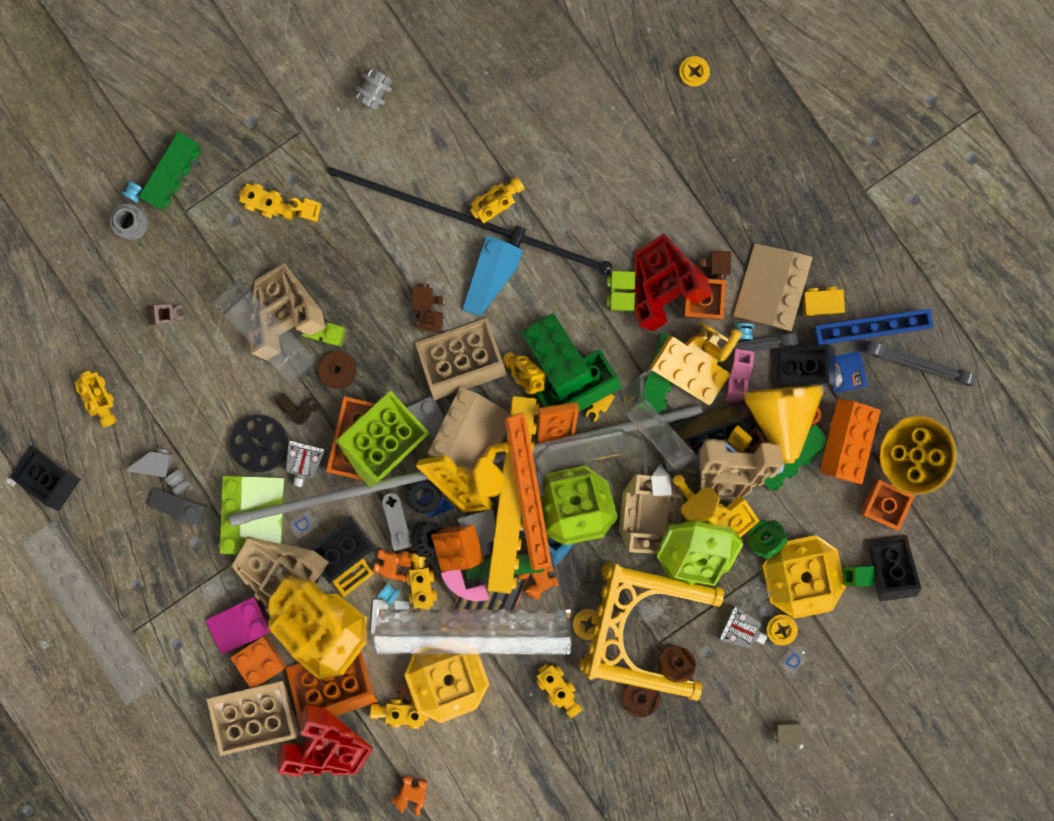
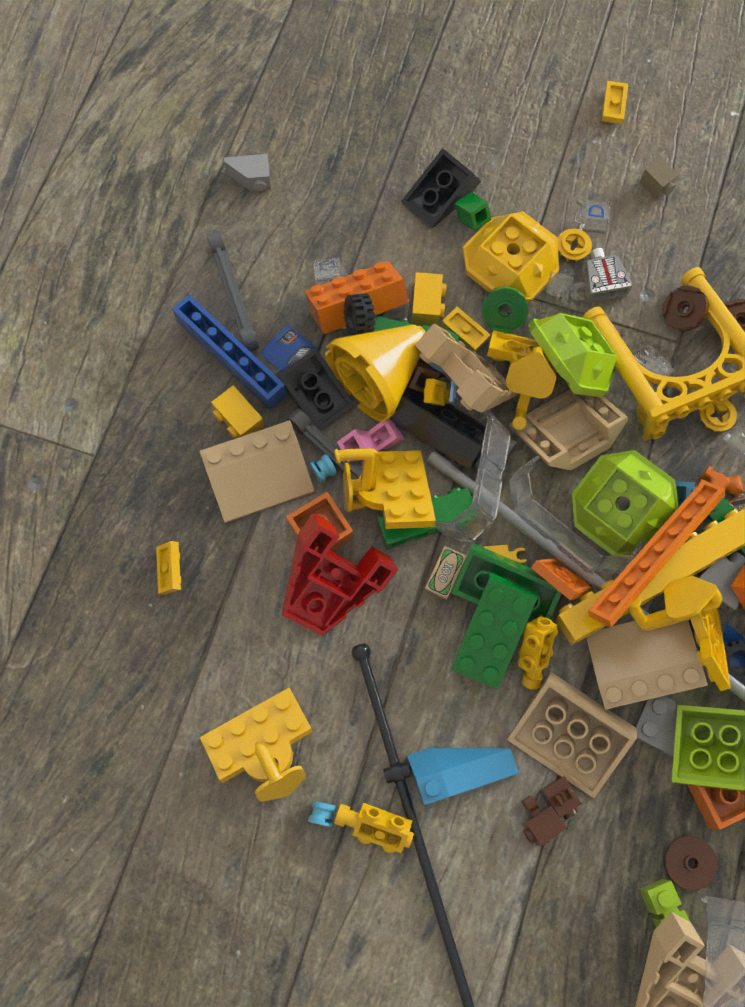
camera: 130 degrees left, 15 degrees down
(526, 174) = (322, 813): none -> medium azure wheel
(598, 164) = (259, 740): none -> yellow plate
(617, 359) = (445, 573): none -> tan tile
(621, 282) = (383, 609): lime piece -> none
(661, 482) = (532, 440): white sticker -> none
(694, 62) = (74, 703): yellow gear -> none
(718, 263) = (272, 541): reddish brown brick -> none
(748, 186) = (168, 568): none -> yellow plate
(773, 502) = (468, 330): none -> yellow plate
(815, 493) = (427, 298): none -> yellow piece
(829, 425) = (359, 314): none -> black tyre
(873, 754) = (614, 102): none -> yellow plate
(886, 505) = (389, 229): orange brick -> none
(918, 455) = (325, 219): yellow cone -> none
(1006, 444) = (249, 171): none -> light grey slope

